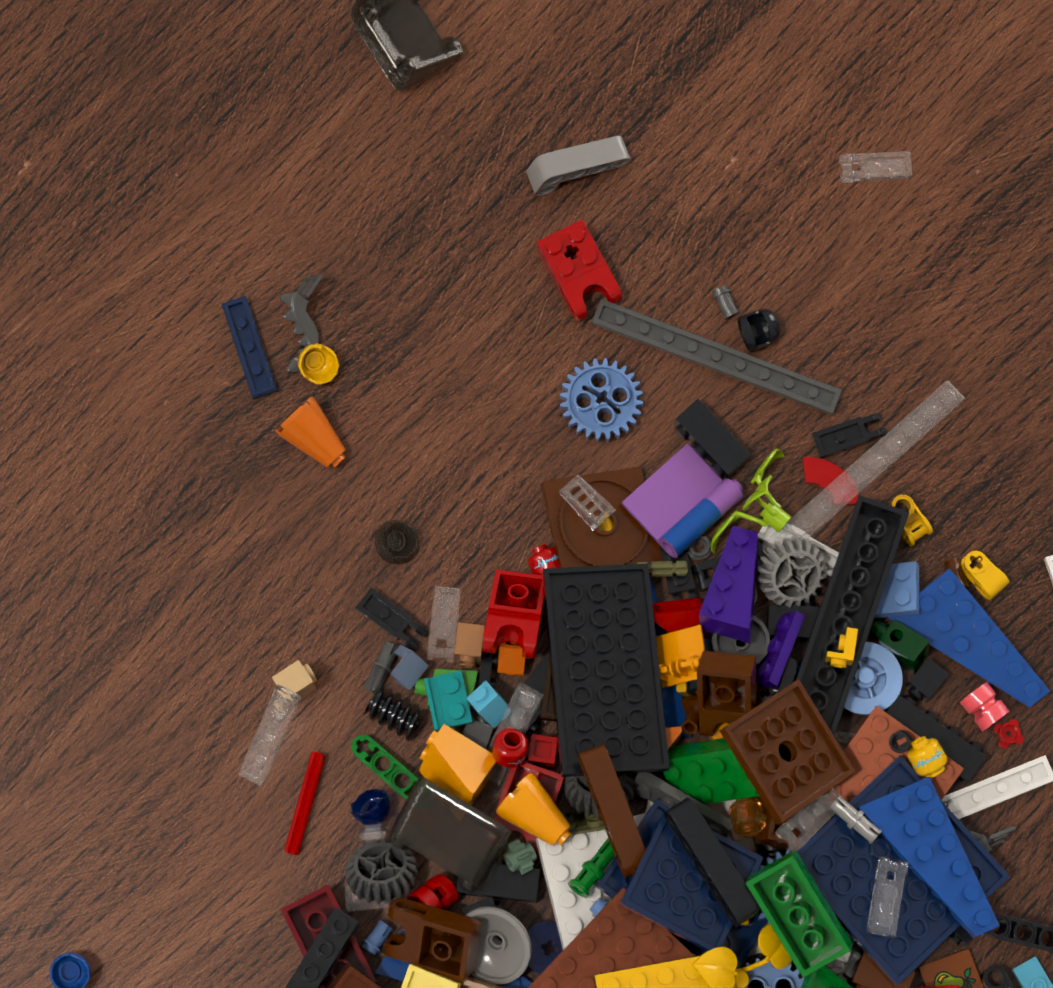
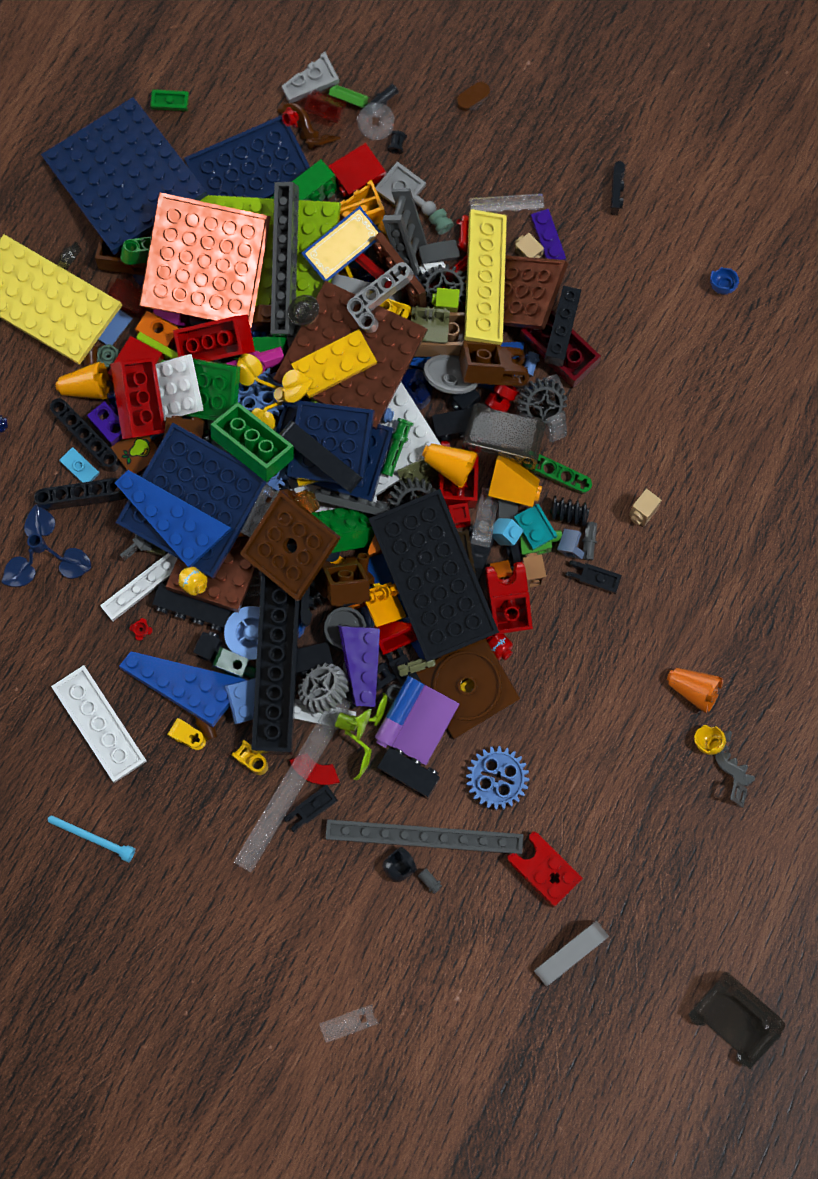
camera: 165 degrees right, 0 degrees up
(249, 347) = (764, 740): dark blue tile -> none
(269, 735) = (649, 466): clear plate -> none
(304, 803) = (609, 433): red axle -> none
(371, 807) = (564, 444): clear blue hair -> none
(388, 542) = (609, 632): clear smoke hat -> none
(444, 622) = (557, 586): clear plate -> none
(510, 747) = (482, 501): red head -> none
(520, 856) = (452, 436): sand green gear -> none
(587, 515) = (466, 690): clear slope -> none
(612, 808) = (398, 476): reddish brown beam -> none
(779, 649) = (316, 628): dark purple plate -> none
(846, 644) = (270, 637): yellow bracket -> none
(855, 819) = (230, 518): light grey pin -> none
(886, 897) = (195, 475): clear plate -> none
(902, 747) = (211, 585): black hinge -> none
(984, 706) = (162, 640): coral wheel -> none

